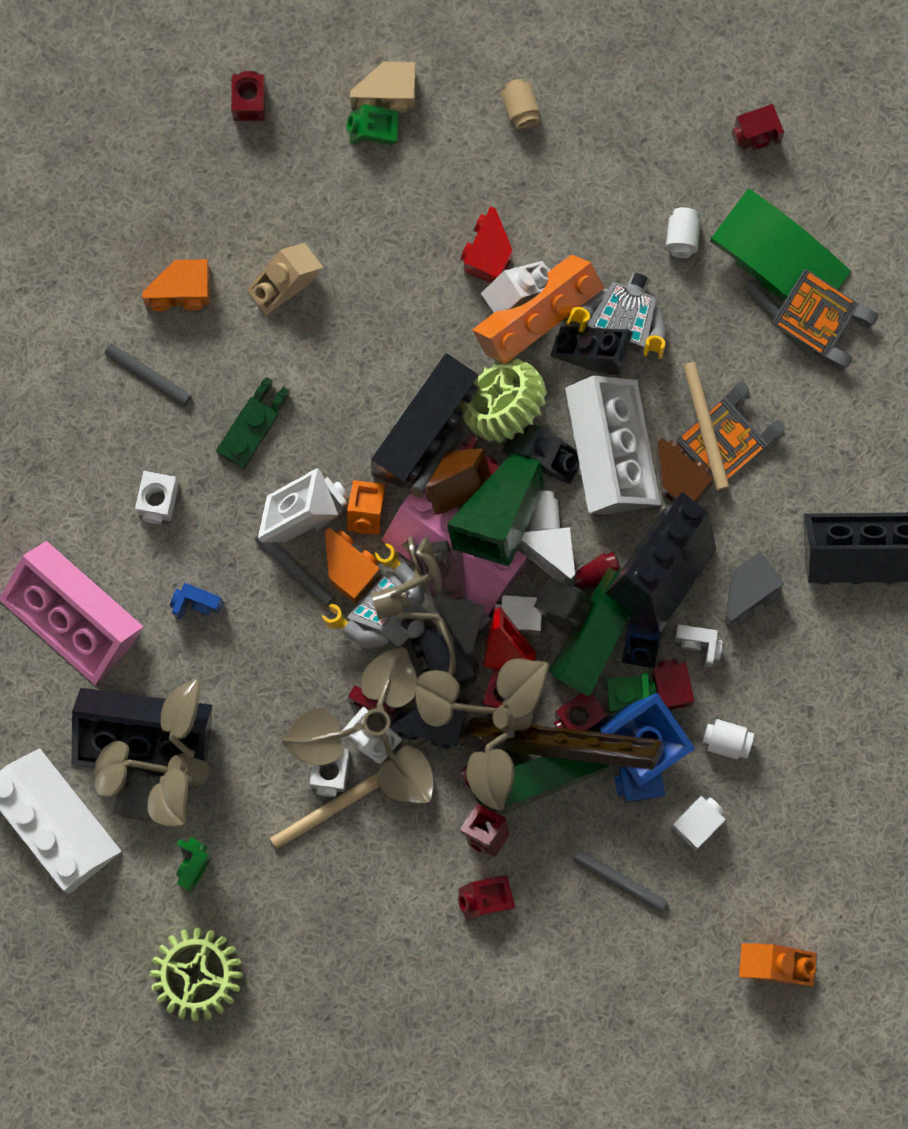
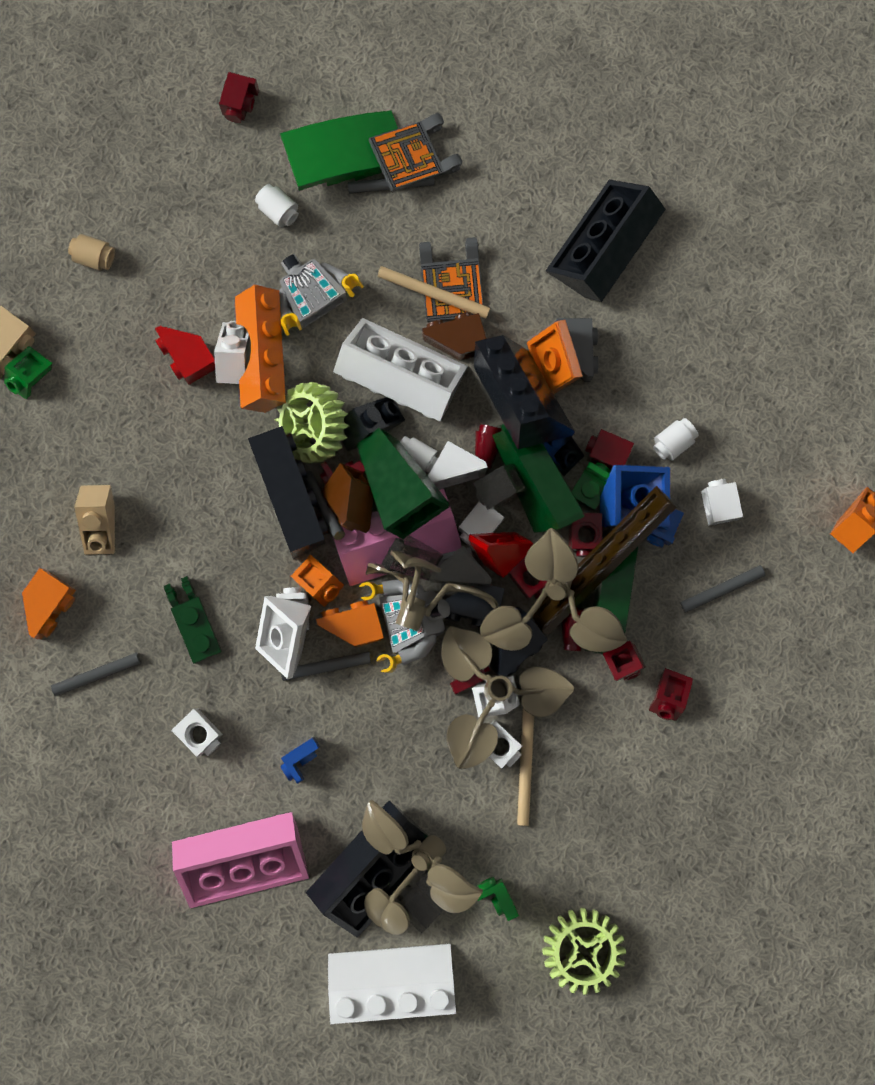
camera: 65 degrees left, 5 degrees up
(594, 348) = (319, 330): black slope -> none
(693, 638) = (585, 411): white bracket -> none
(722, 574) = (555, 356): none -> orange tile

